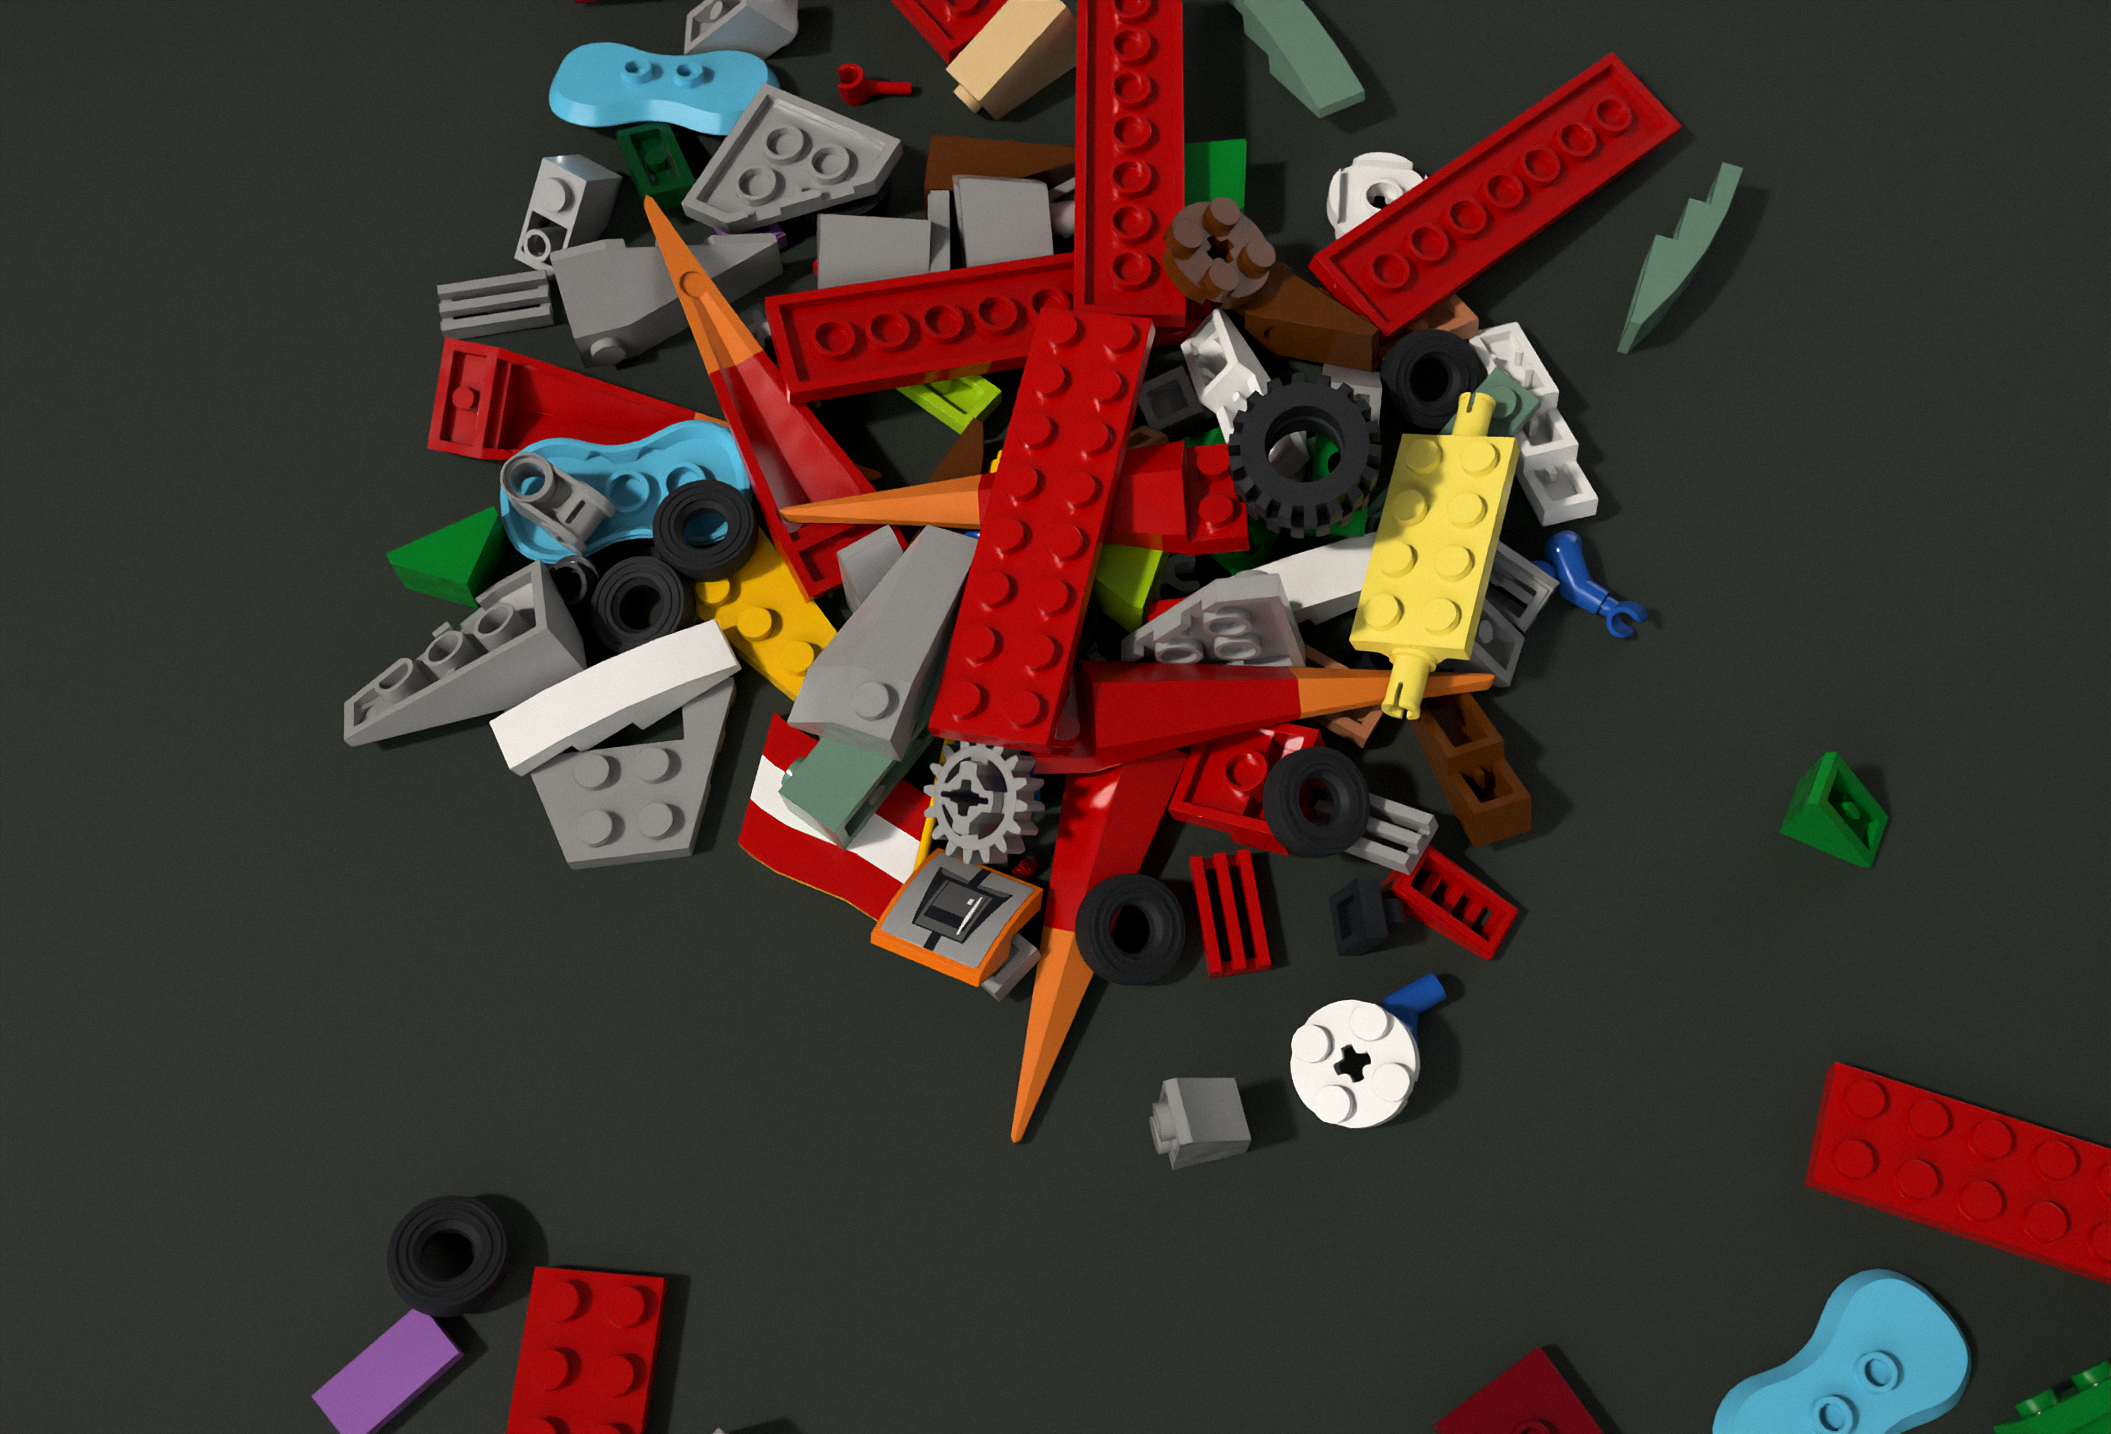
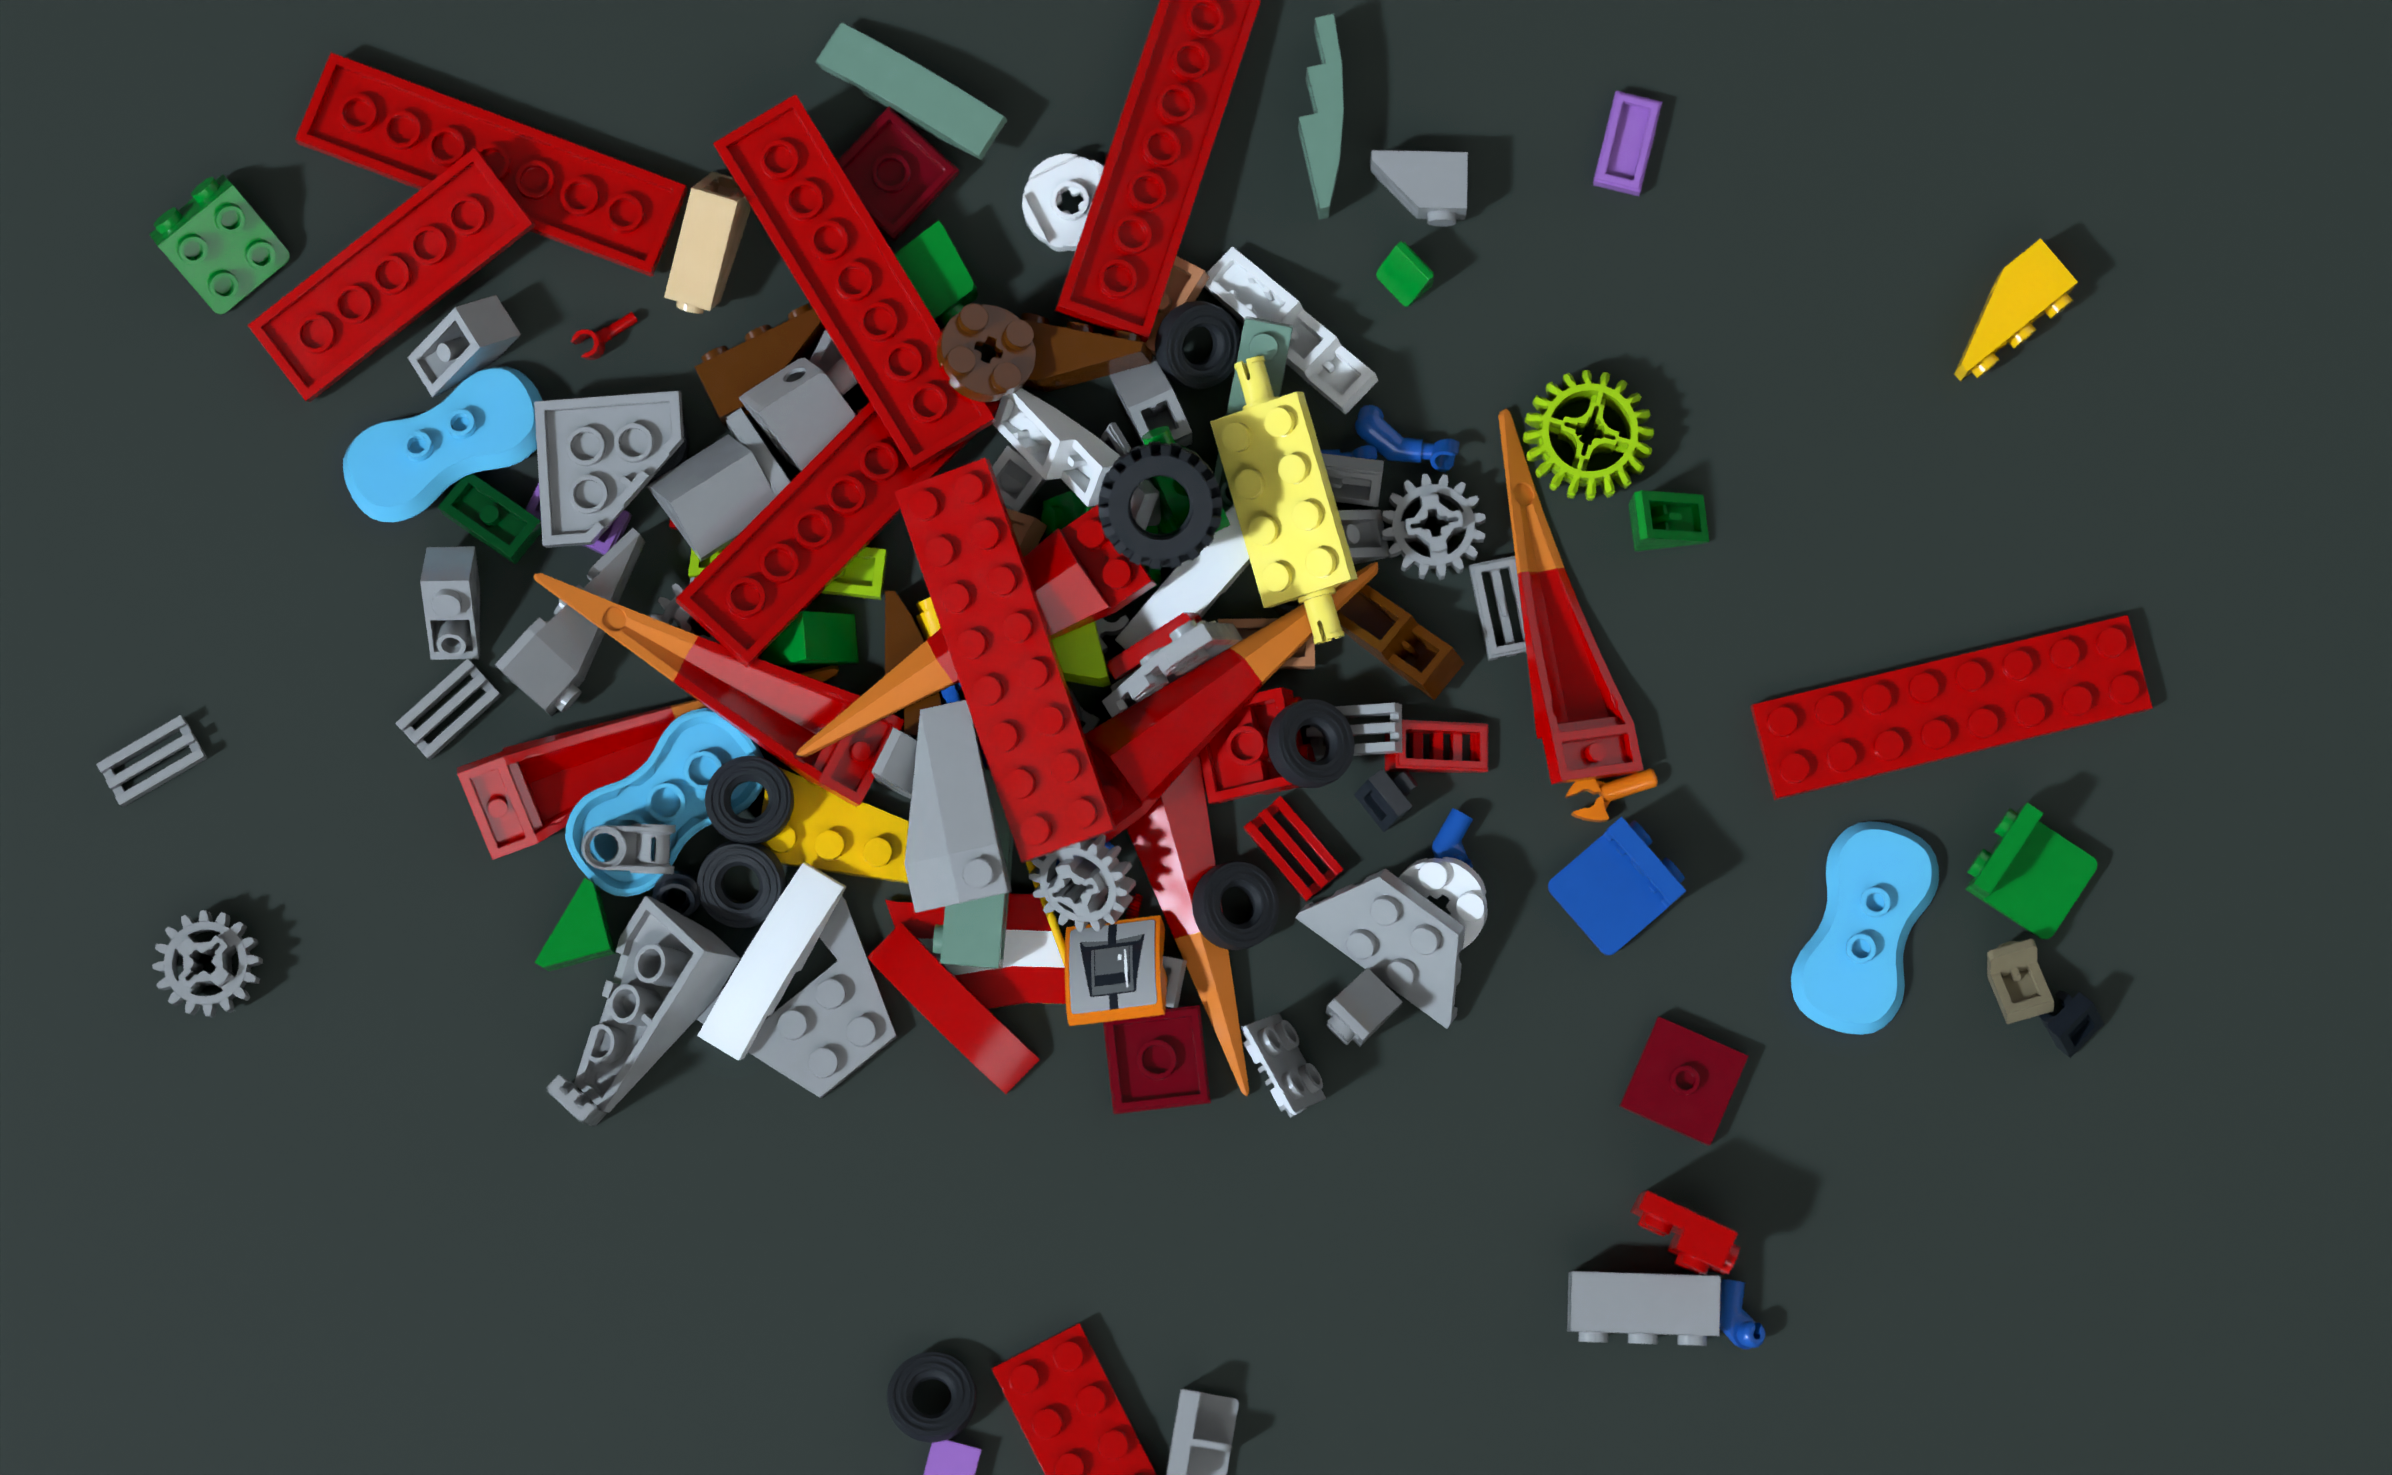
camera: 30 degrees left, 15 degrees up
(104, 382) = (221, 949): none -> light grey gear
(207, 192) = (143, 744): none -> light grey tile
(322, 710) = (575, 1101): none -> light grey tile
(765, 862) = (953, 1009): none -> red slope
(877, 434) = (815, 641): none -> green slope
(941, 1042) = (1157, 1061): none -> dark red plate
(1076, 1112) = (1276, 1047): none -> light grey hinge
(1232, 94) = (895, 173): none -> dark red plate
(1290, 1072) = (1397, 937): none -> light grey wing
(1574, 1167) = (1617, 886): none -> blue bracket
(1588, 846) = (1493, 567): none -> light grey tile
(1601, 672) = (1455, 523): none -> light grey gear
(1614, 1060) = (1609, 792): none -> orange bar
(1635, 927) = (1572, 691): none -> red plate
(1681, 435) = (1405, 274): none -> green slope
(1748, 362) = (1425, 182): none -> light grey slope
(1781, 652) = (1567, 428): none -> lime gear
(1979, 446) = (1627, 143): none -> medium lavender tile

